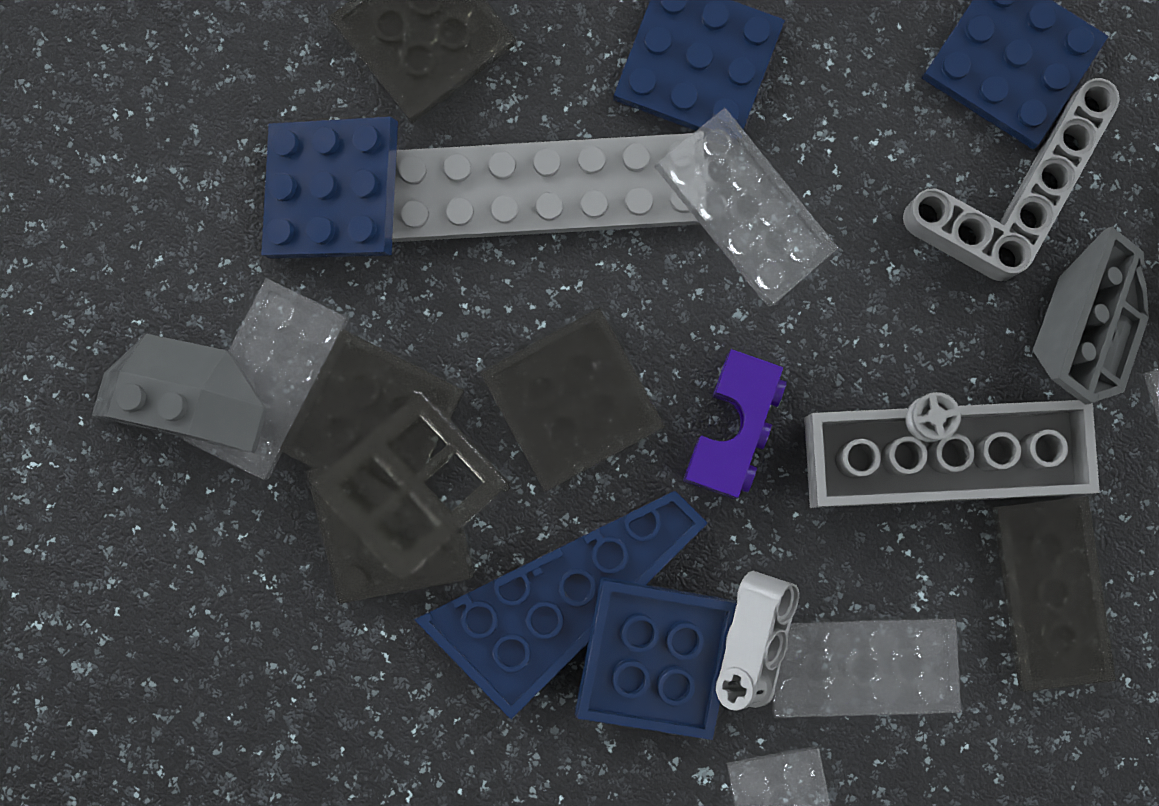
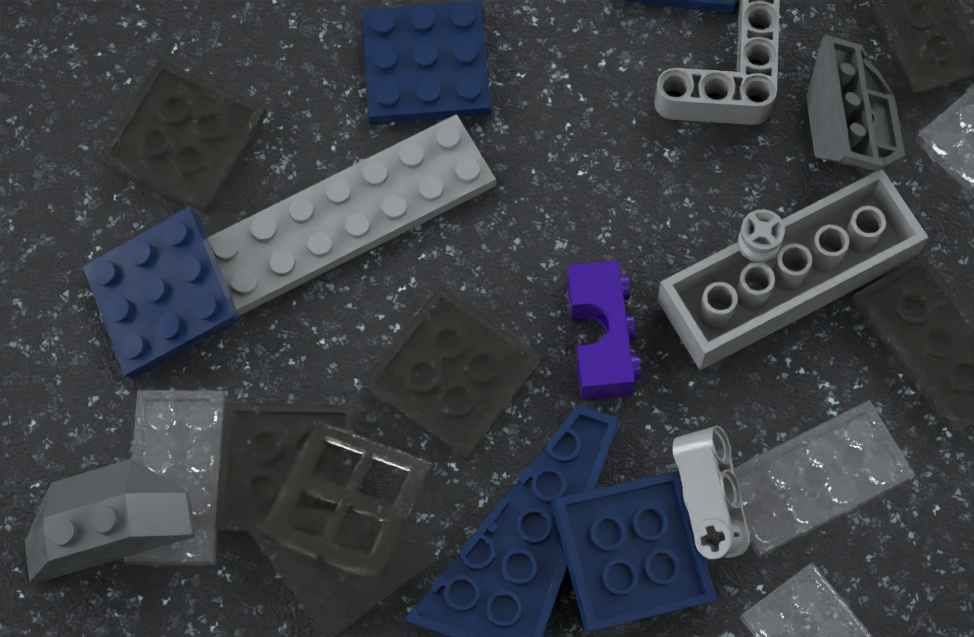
camera: 25 degrees left, 15 degrees down
(746, 207) = (523, 152): clear plate -> none

